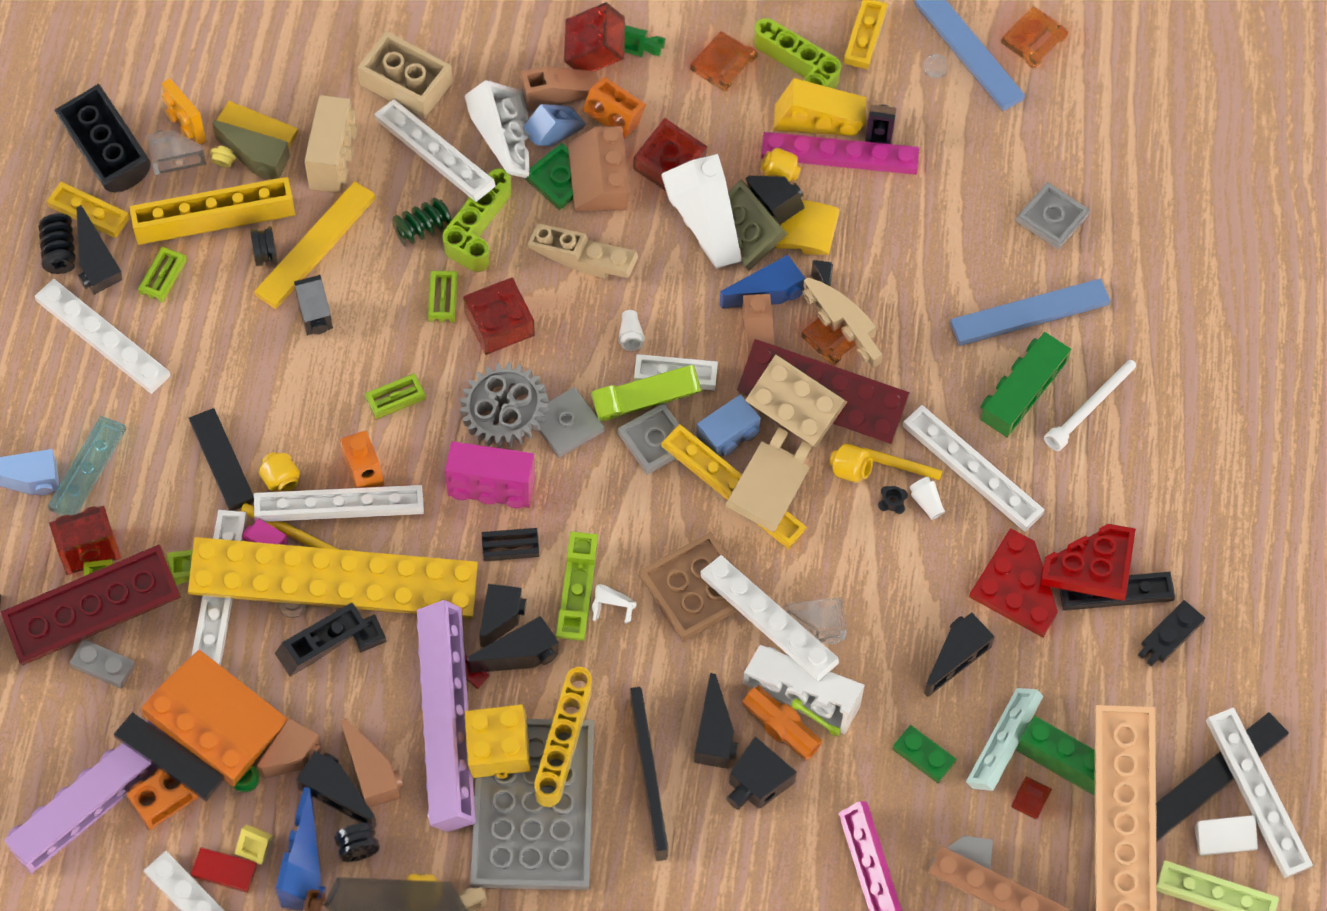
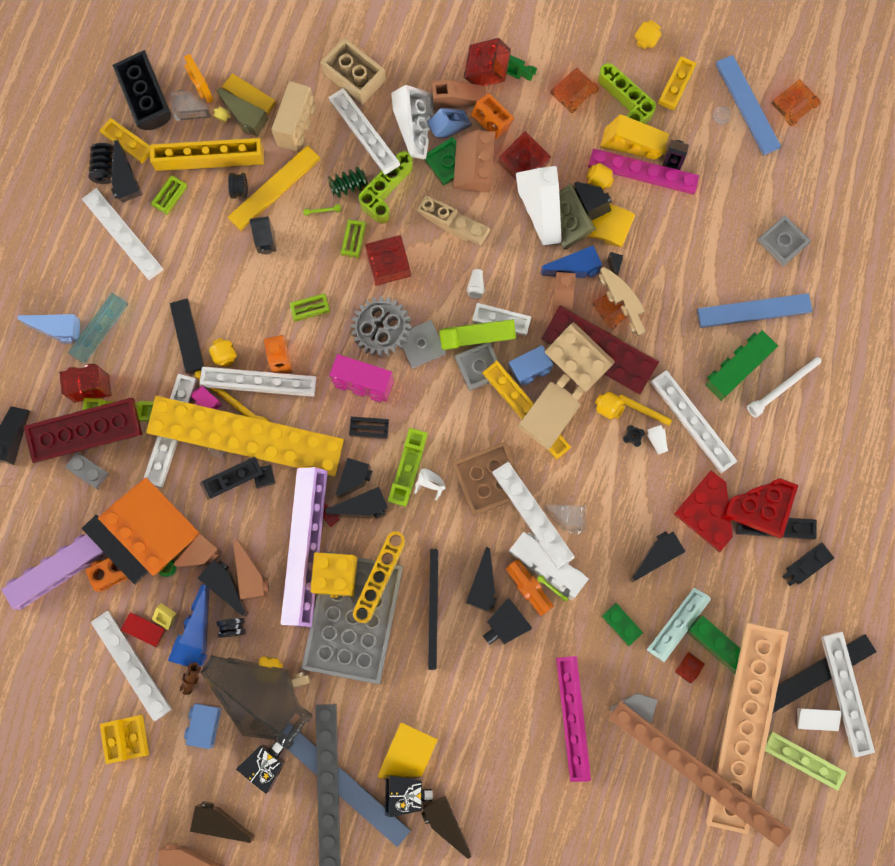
camera: 15 degrees right, 15 degrees up
(411, 260) = (337, 208): none -> lime hinge

